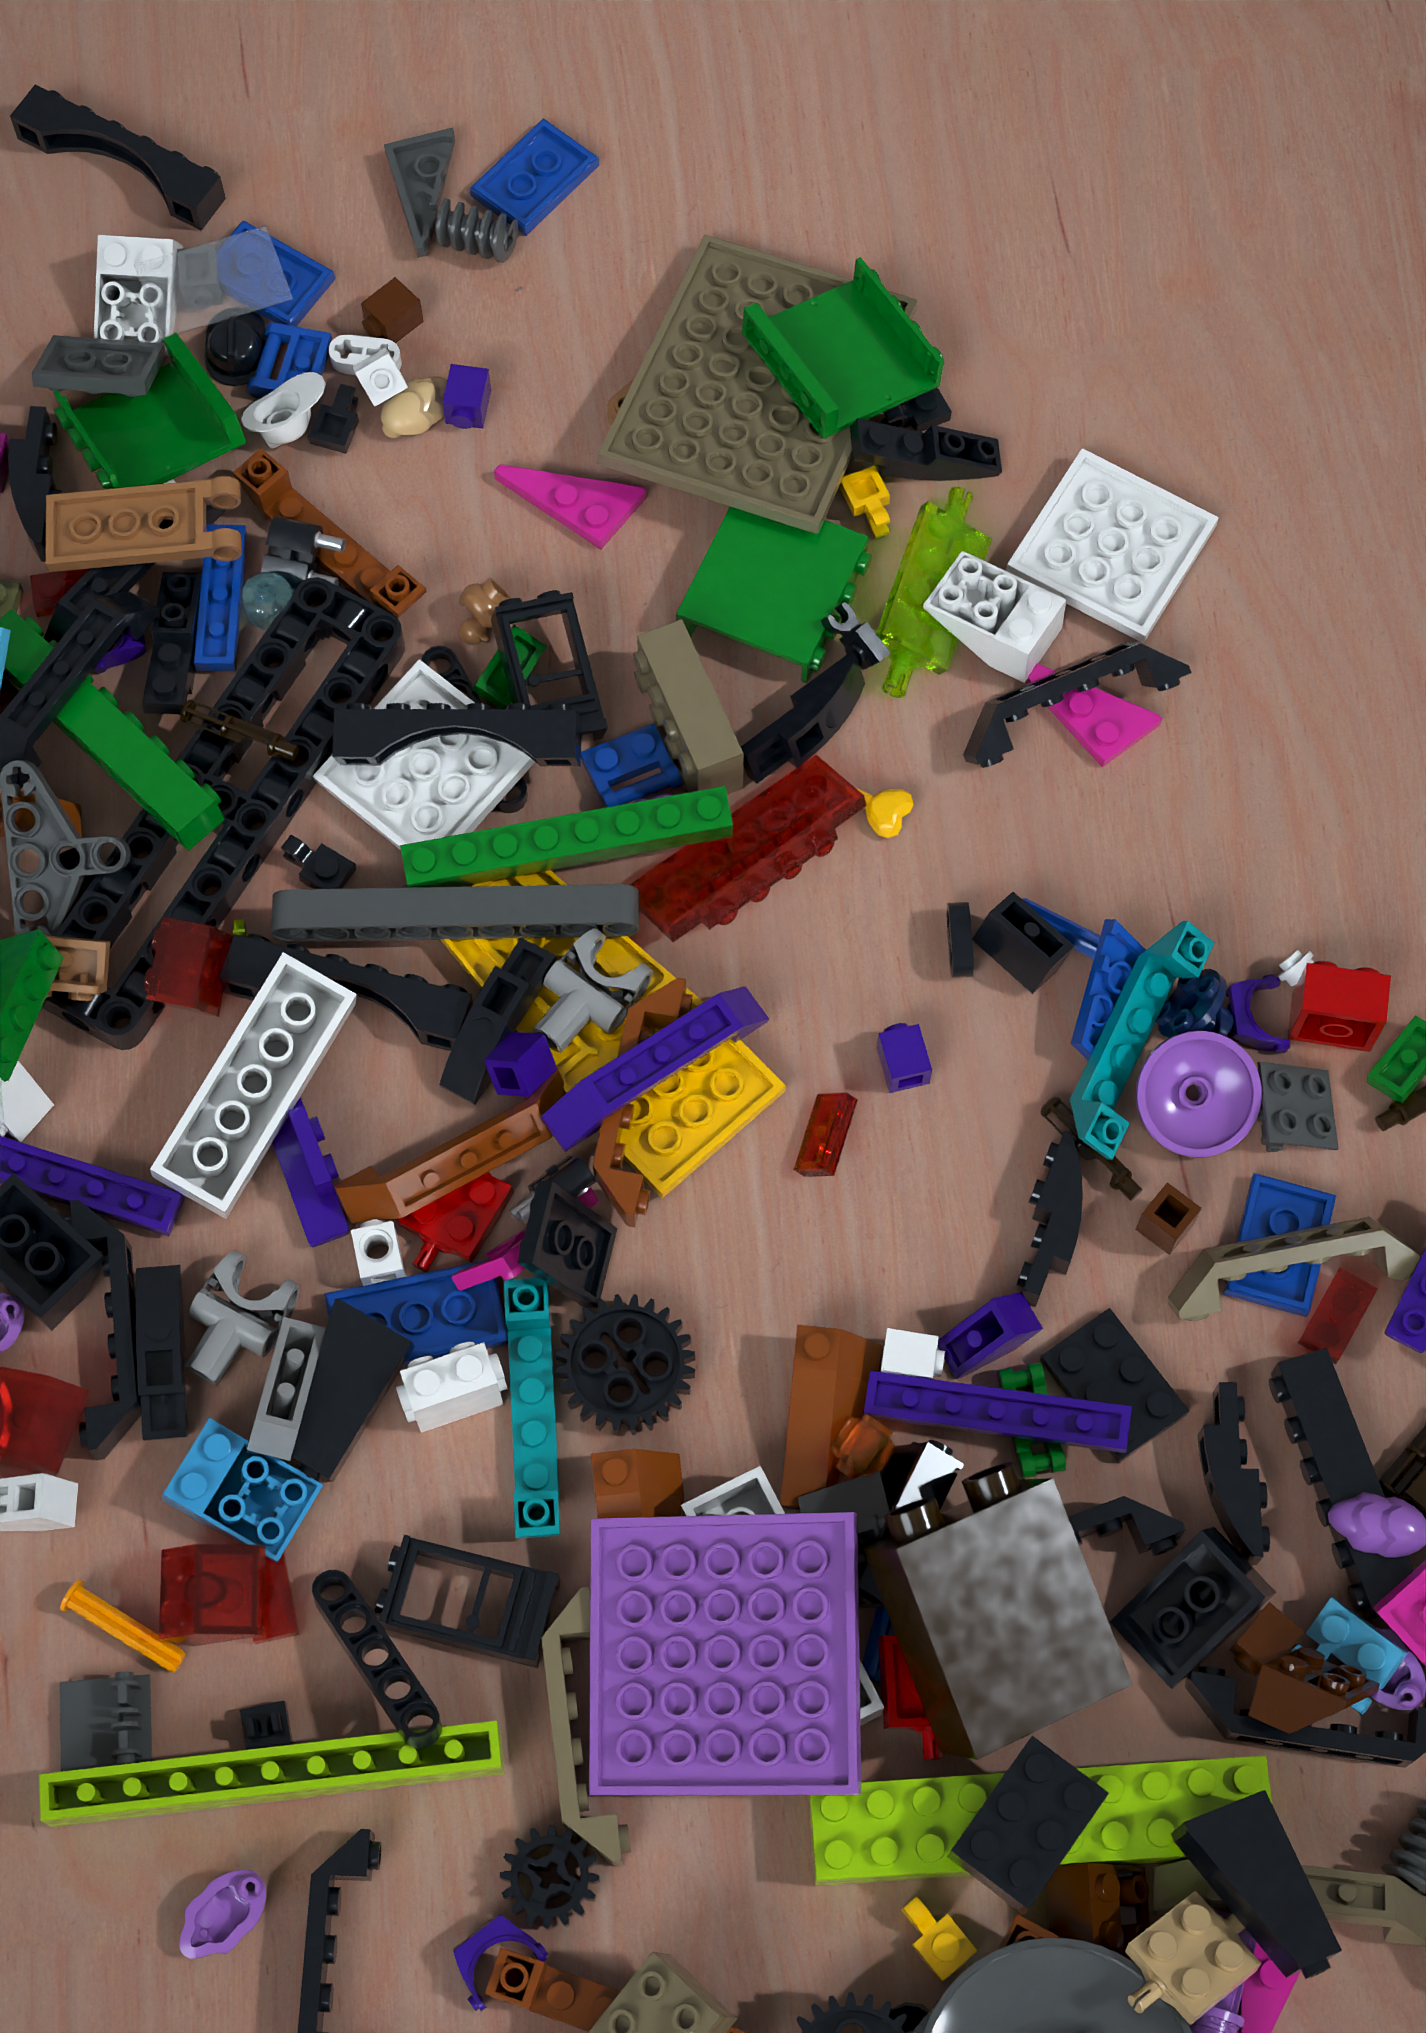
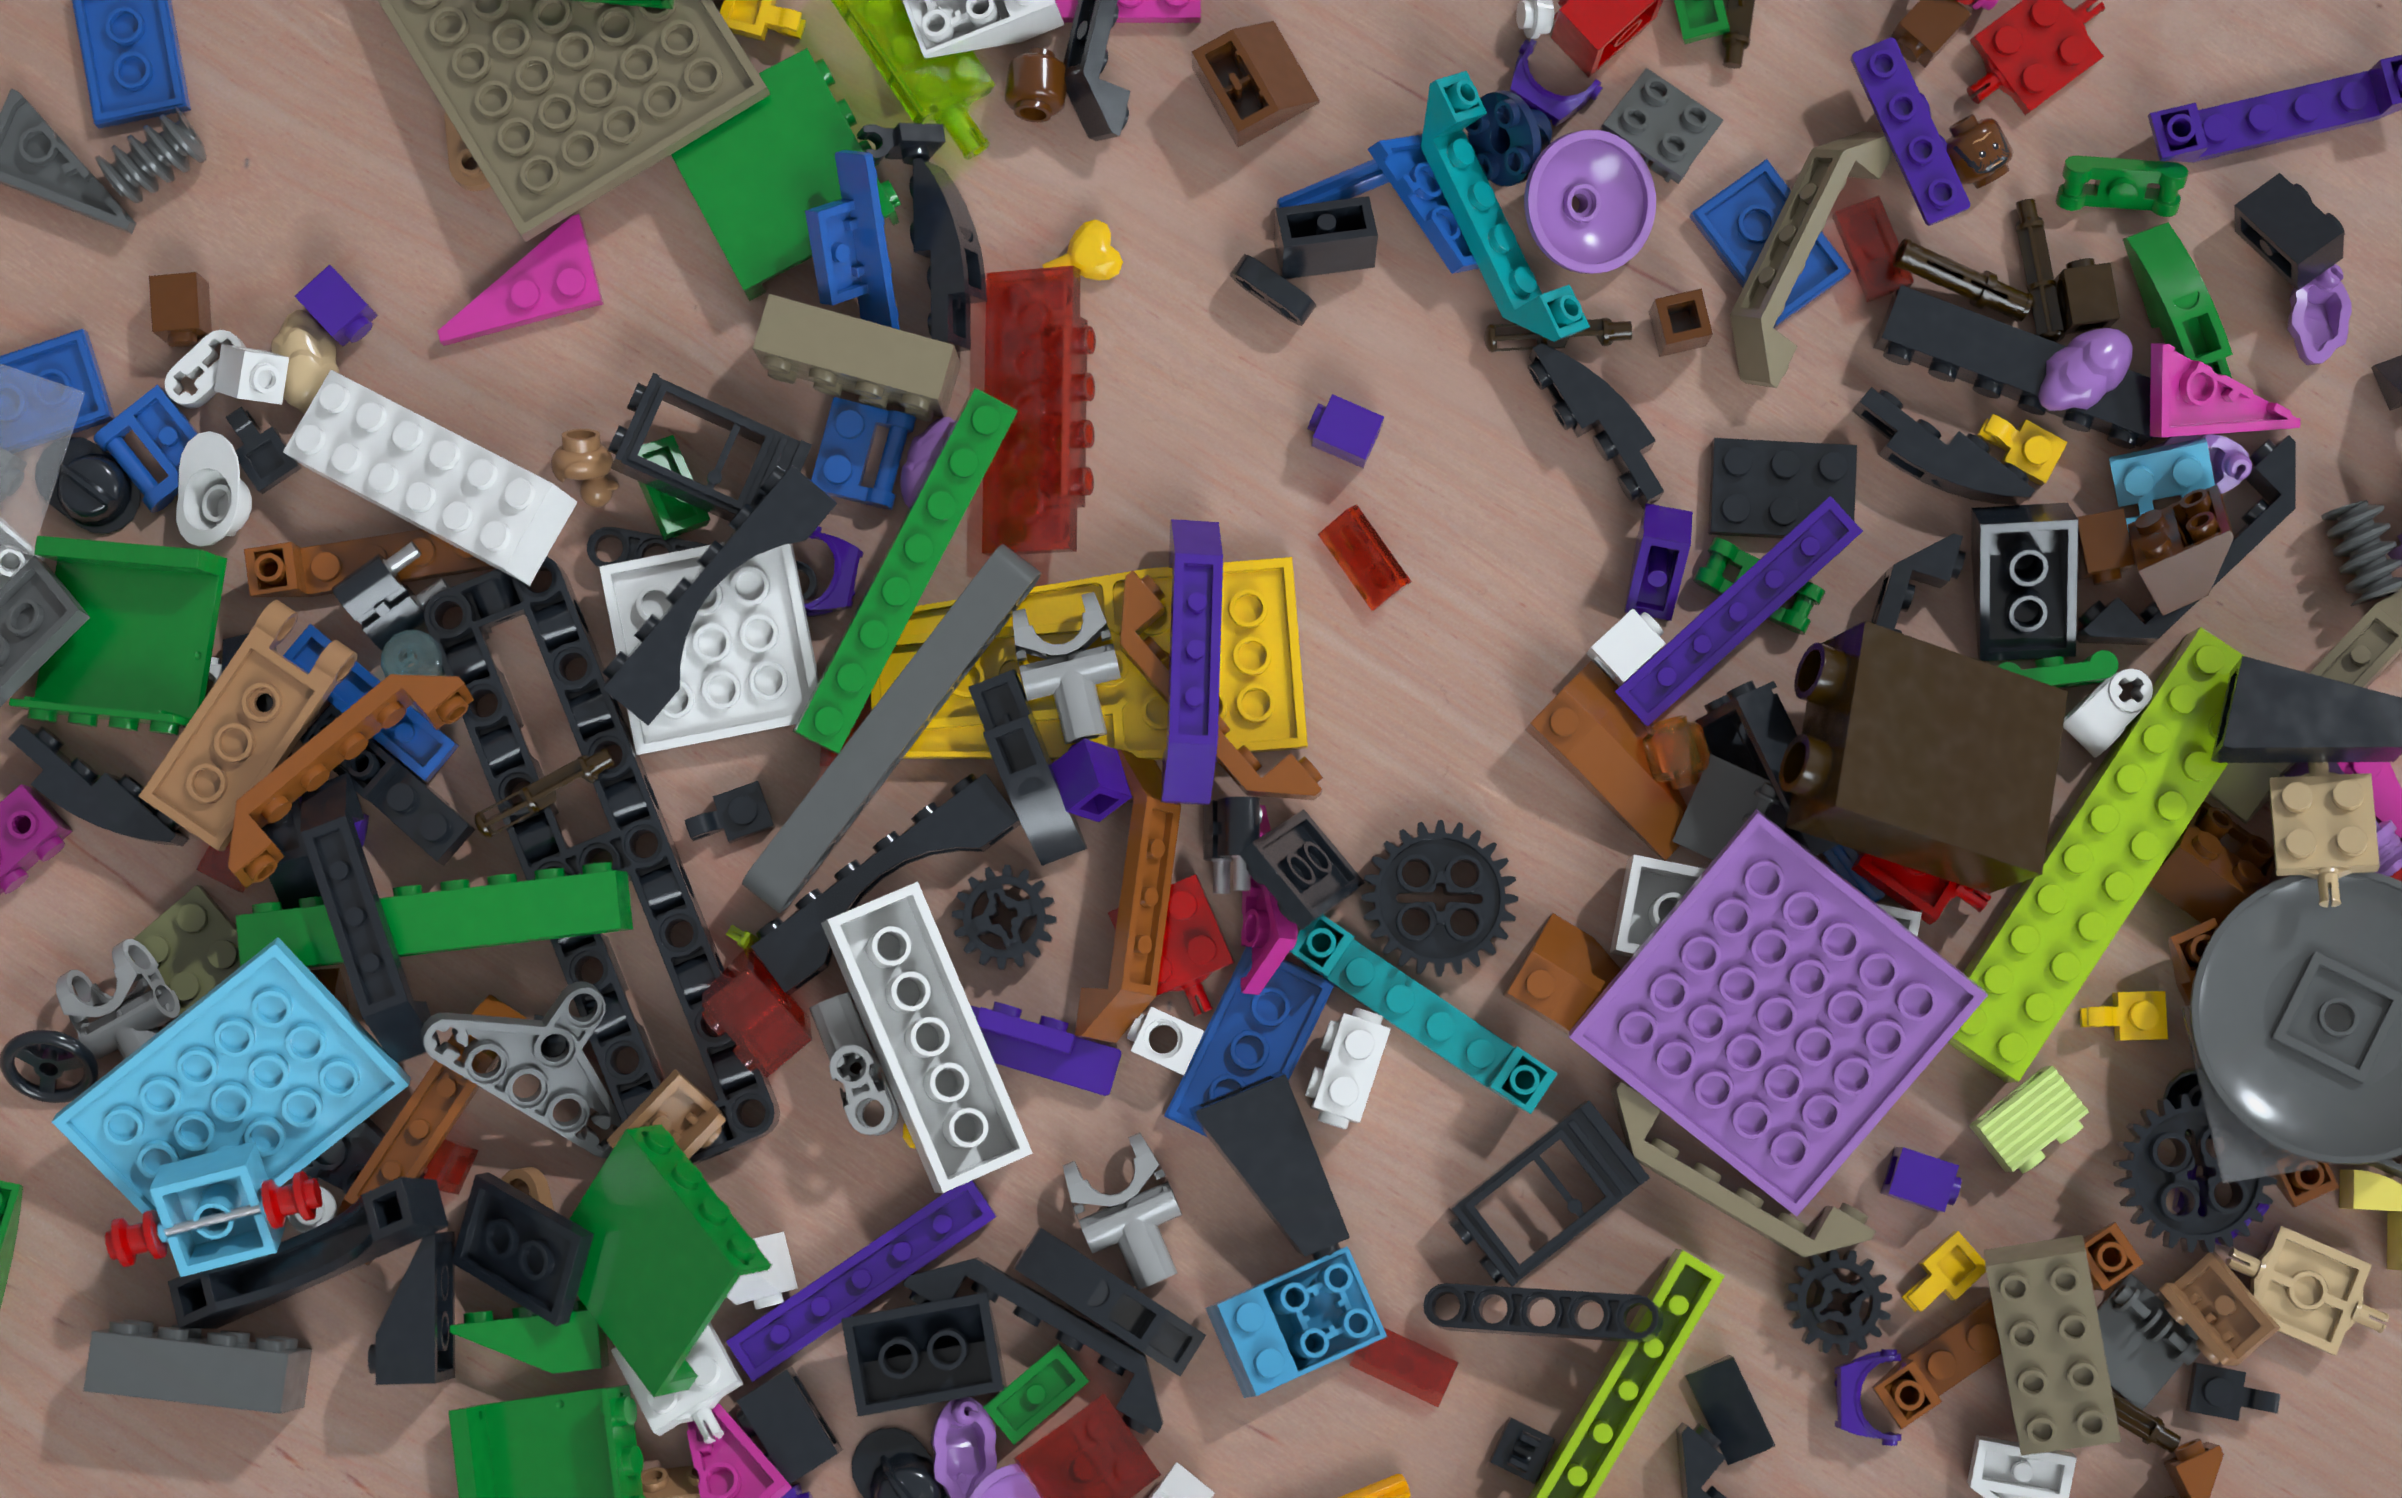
camera: 50 degrees left, 15 degrees up
(59, 1353) = (1036, 1393): none -> green plate
(60, 576) = (437, 698): none -> dark orange slope
(196, 1055) = (848, 1043): none -> light grey connector
(212, 1593) = (1375, 1414): clear red slope -> none
(286, 1389) = (1240, 1216): light grey brick -> none
(380, 1067) = (983, 923): none -> black gear
(394, 517) = (430, 477): none -> white brick
(409, 1861) = (1730, 1410): none -> black slope
(548, 807) = (842, 585): none -> dark purple helmet
(634, 1944) = (1950, 1269): none -> yellow plate
(689, 1871) = (1921, 1180): none -> dark purple brick
(758, 649) = (852, 245): none -> blue bracket
(797, 1920) = (2030, 1120): none -> yellowish green brick
(967, 692) = (1036, 85): none -> reddish brown head
(1028, 1825) = (2118, 873): black brick -> none
(1090, 820) = (1253, 80): none -> reddish brown slope
(1142, 1739) = (2103, 716): none -> white piece
(1168, 1706) = (2054, 672): none -> green plate
(1291, 1538) = (2027, 448): none -> yellow plate
(1371, 1396) = (1981, 288): none -> dark brown pin

